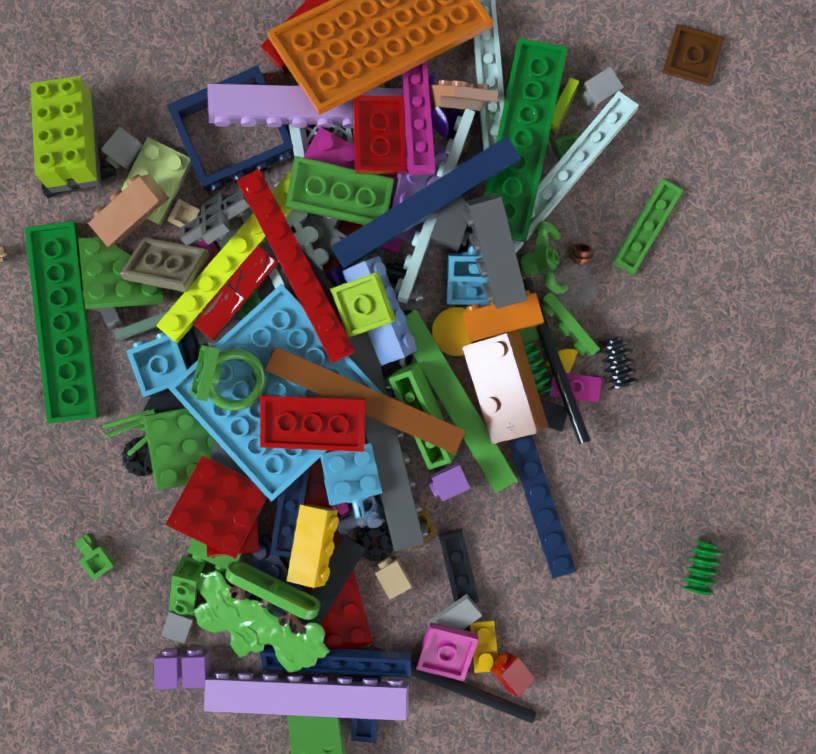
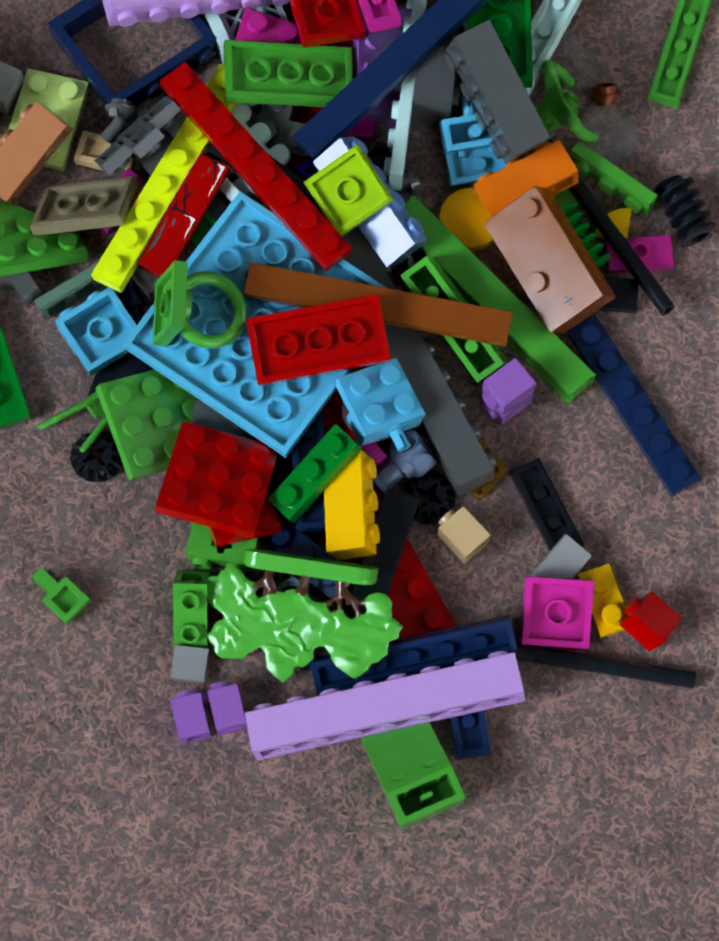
camera: 20 degrees left, 15 degrees down
(206, 194) = (121, 112): none -> dark grey plate
(291, 519) = (314, 473): none -> green plate

